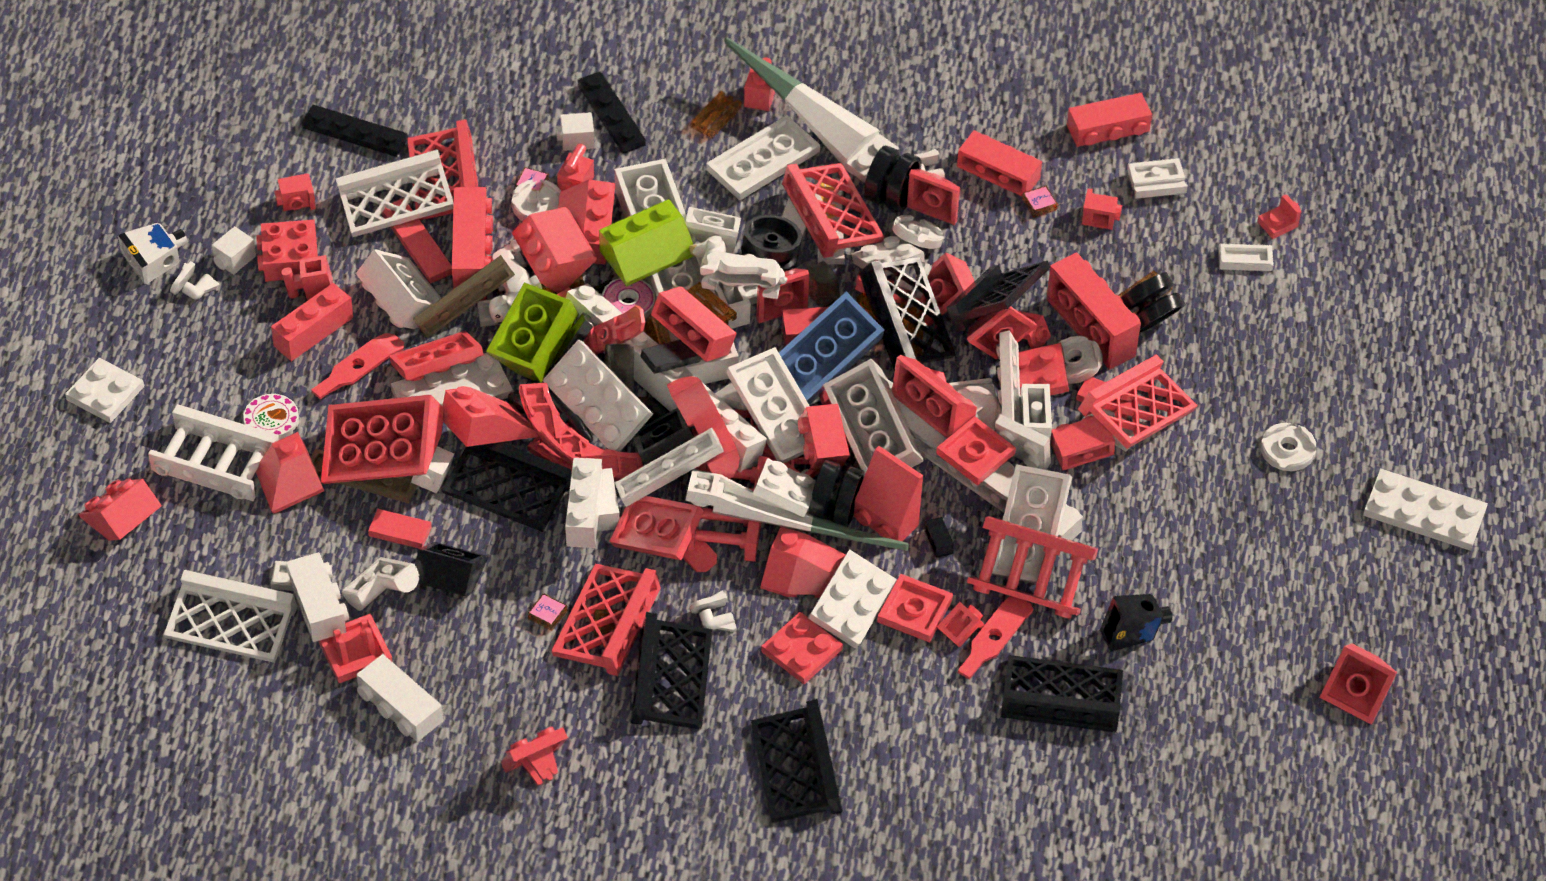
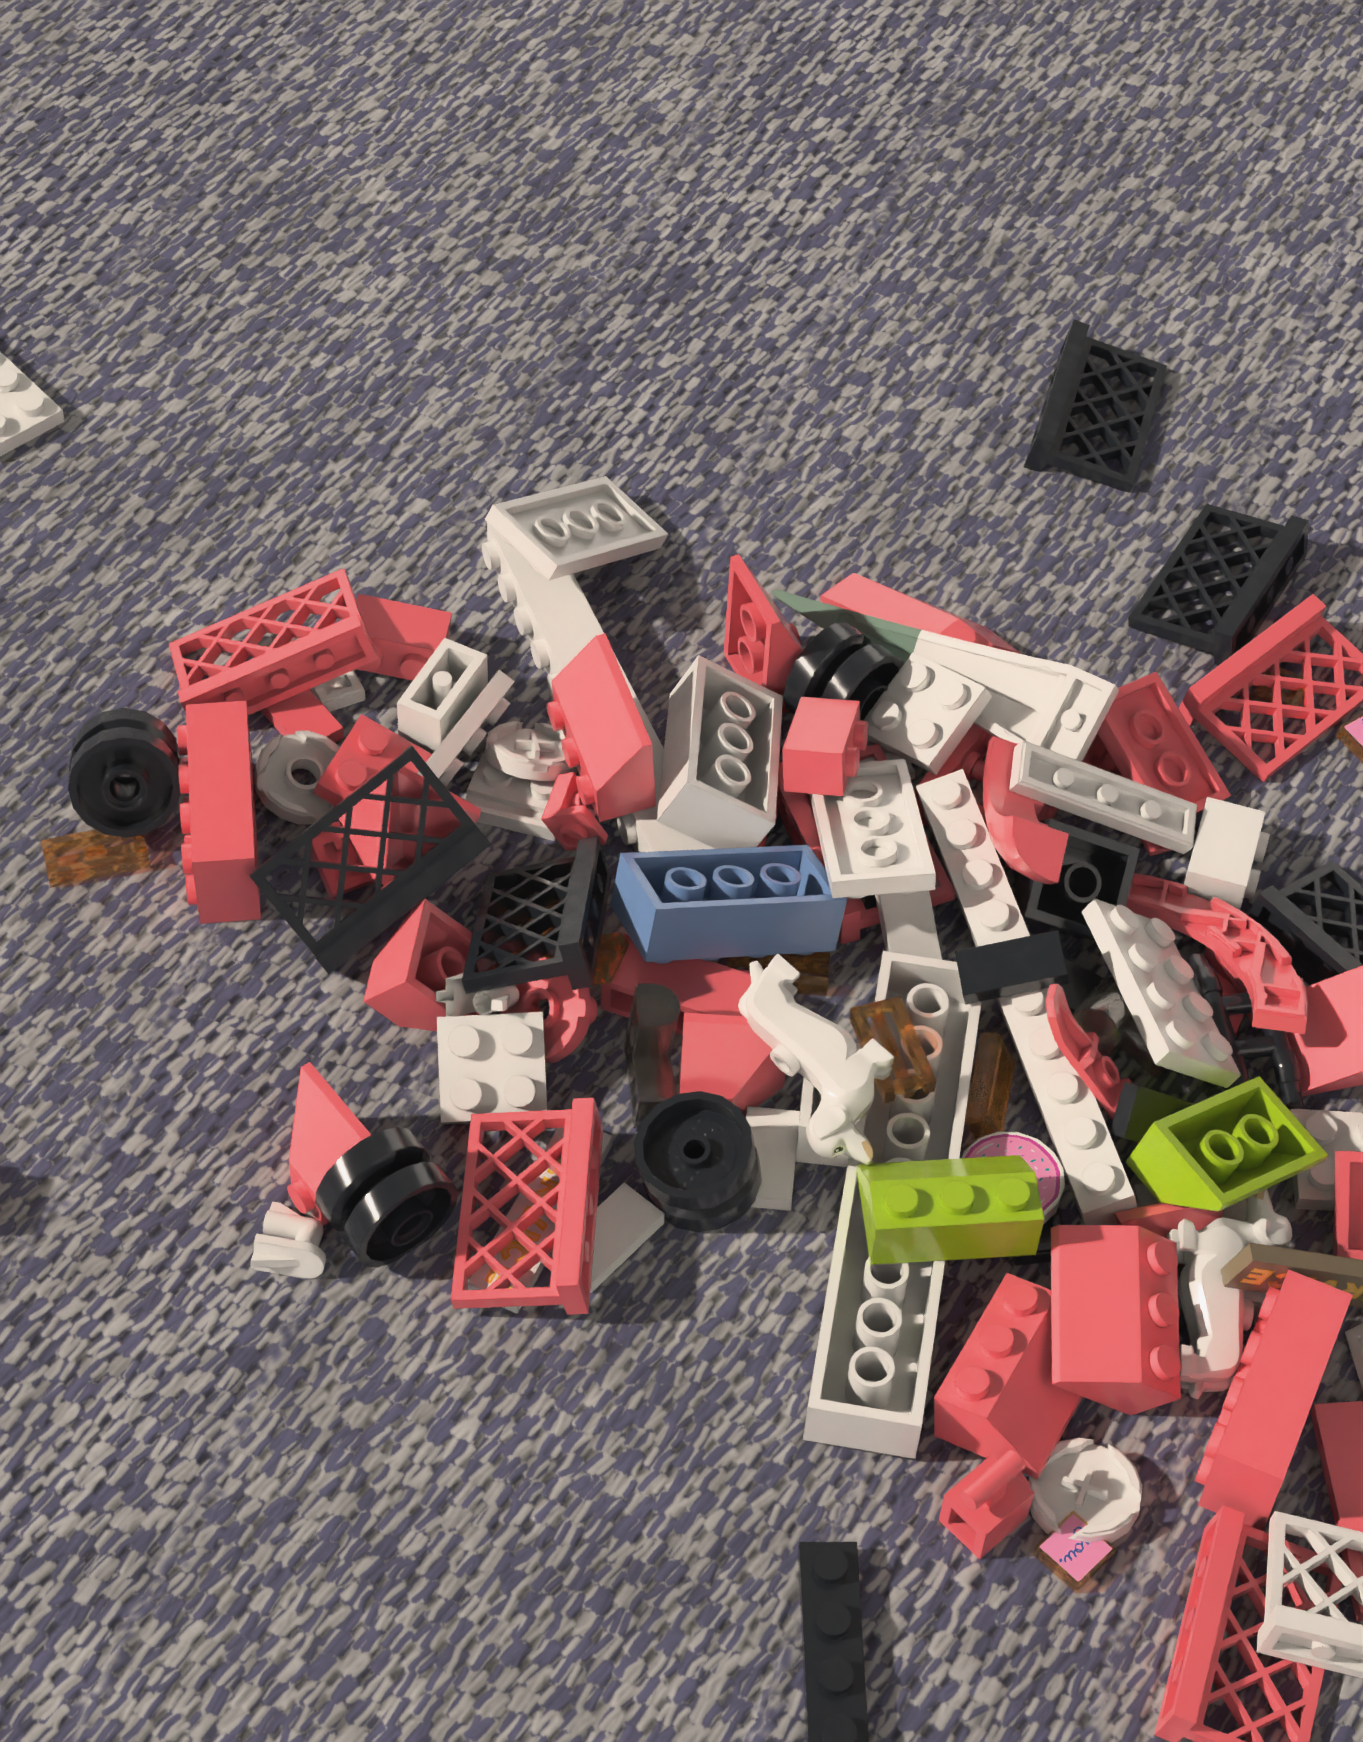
camera: 155 degrees left, 0 degrees up
(576, 130) = (937, 1615): white brick -> none
(584, 502) = (1269, 800): white brick -> none
(693, 323) = (944, 997): coral brick -> none
(704, 607) = (1115, 640): white piece -> none
(705, 224) = (792, 1215): white slope -> none
(715, 108) = (608, 1532): clear orange tile -> none
(757, 92) = (499, 1553): coral brick -> none
(762, 157) = (587, 1395): white plate -> none
(802, 648) = (1005, 549): coral plate -> none
(843, 133) = (404, 1362): white plate -> none
(852, 599) = (898, 563): white plate -> none
(915, 608) = (810, 528): coral plate -> none
(920, 233) = (408, 1090): white tile -> none
(939, 537) = (709, 610): black piece -> none
(961, 623) = (755, 478): coral bracket -> none
(976, 450) = (565, 633): coral plate -> none
(999, 163) = (154, 1180): coral brick -> none
(1002, 624) = (695, 468): coral piece -> none
(1030, 445) = (508, 646): white plate -> none
(1039, 201) = (134, 1091): tile -> none
(1052, 546) = (614, 479): coral fence -> none
(1061, 709) = (697, 333): black fence -> none
(1100, 210) = (51, 1011): coral brick -> none
(1133, 620) = (517, 378): black torso -> none
(1288, 459) = (91, 558): white tile -> none
(1358, 683) = (269, 220): coral slope -> none

